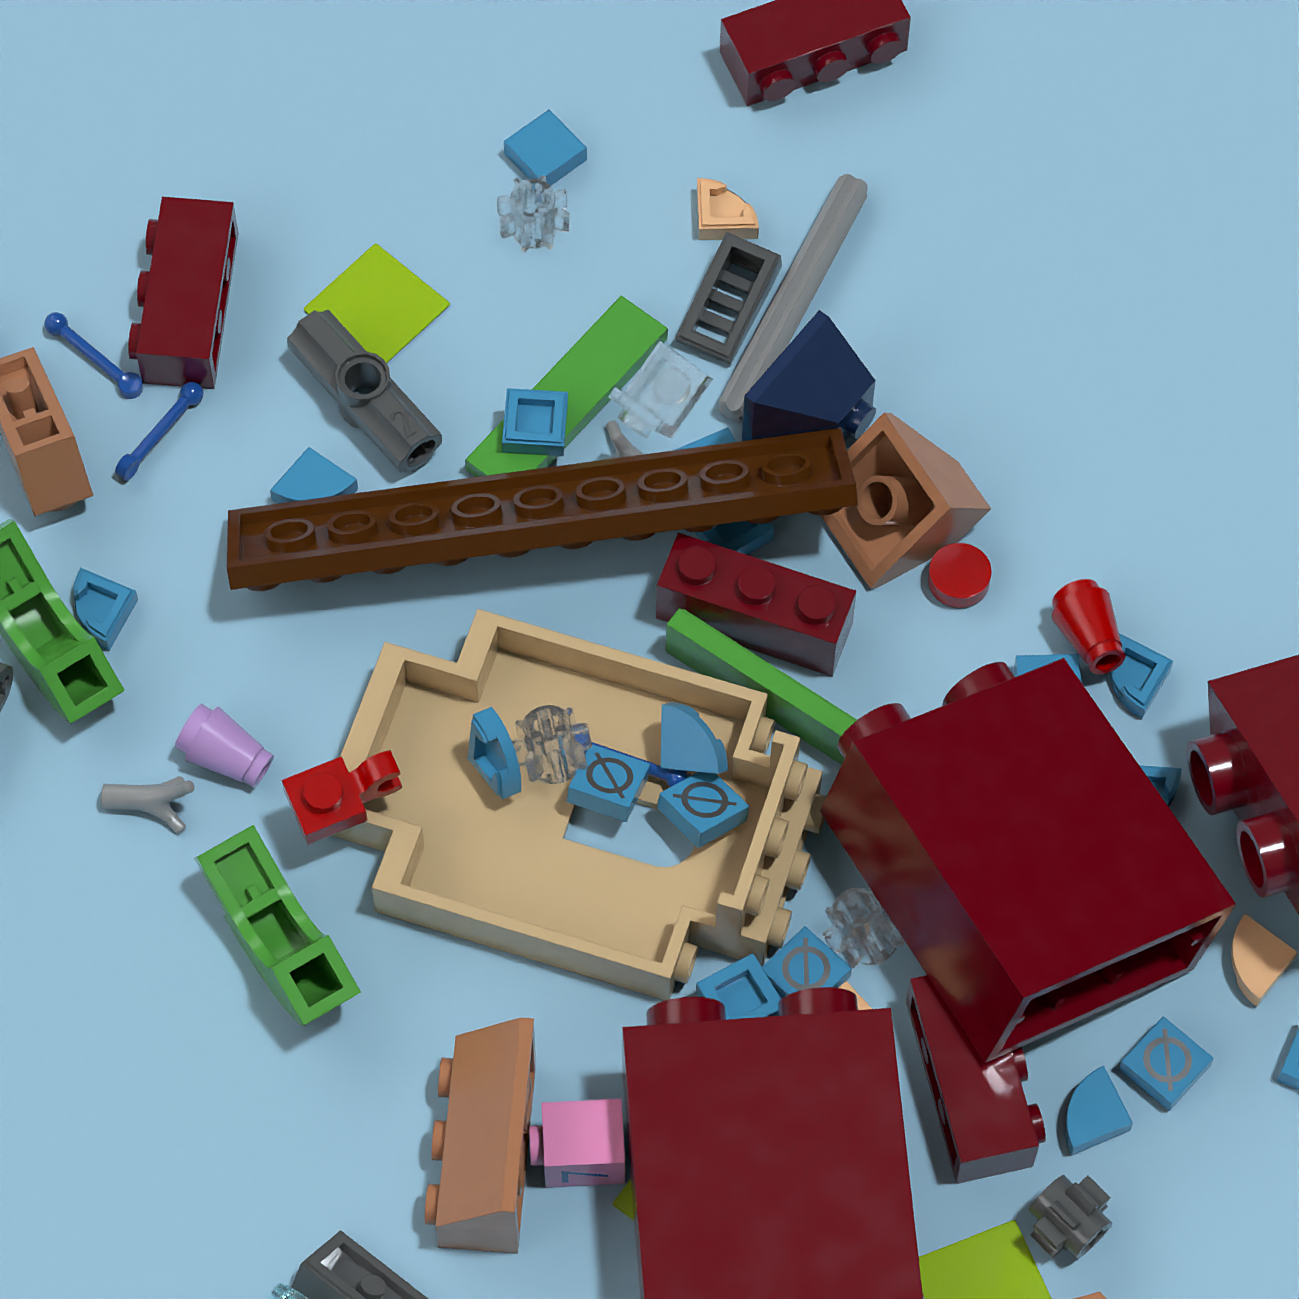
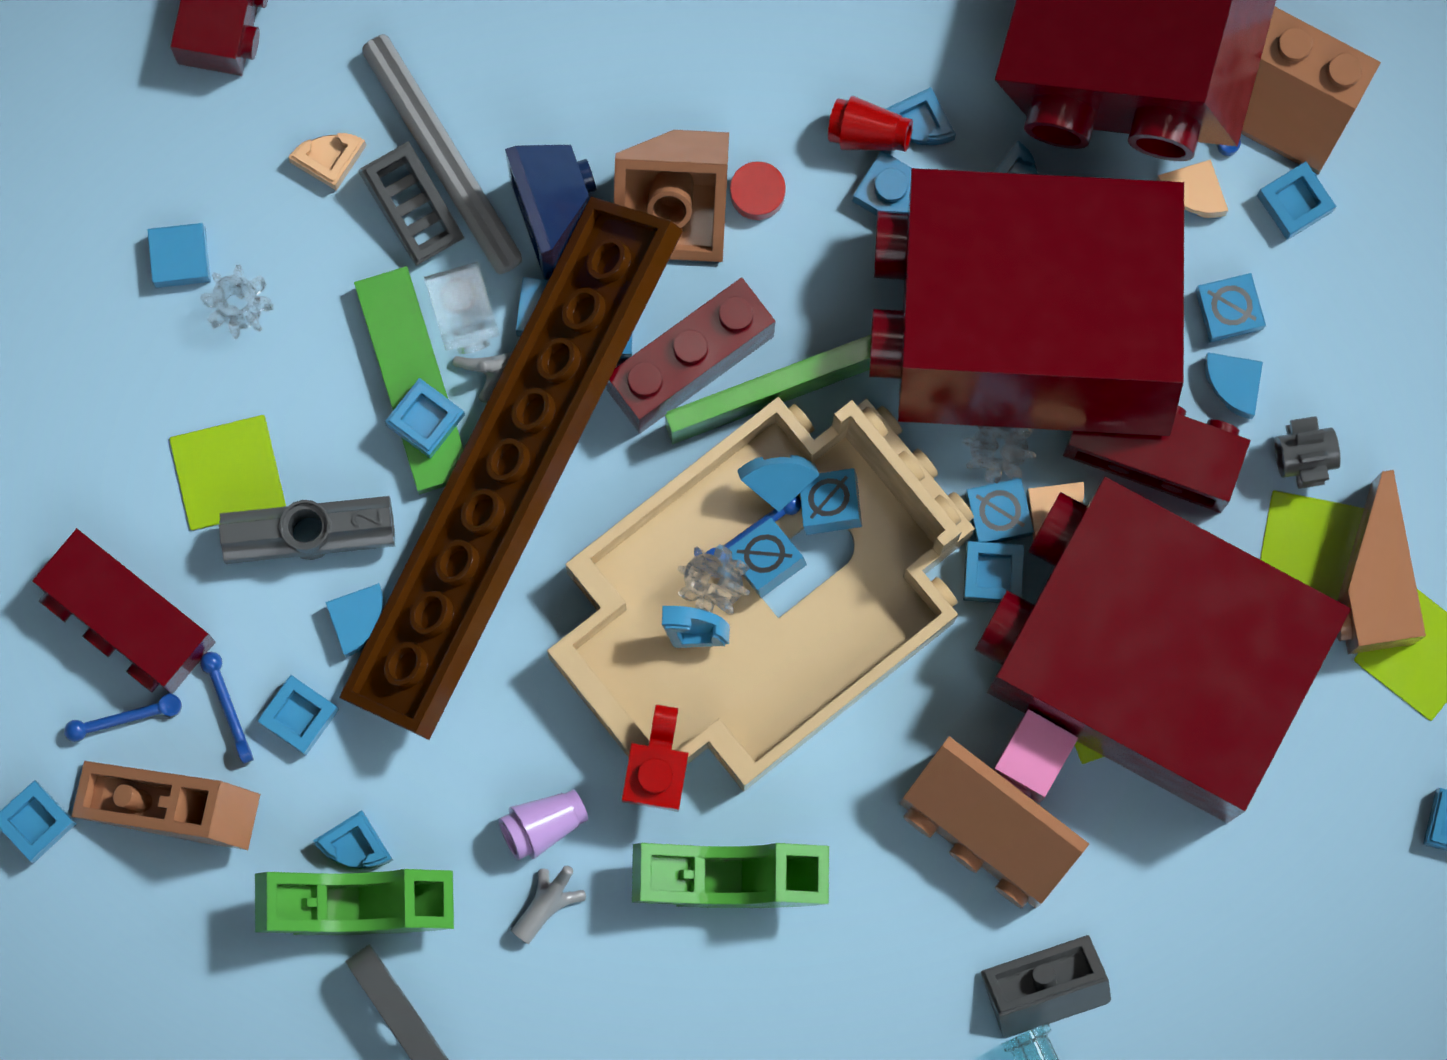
camera: 60 degrees left, 15 degrees up
(190, 490) = (298, 715): none -> dark azure tile

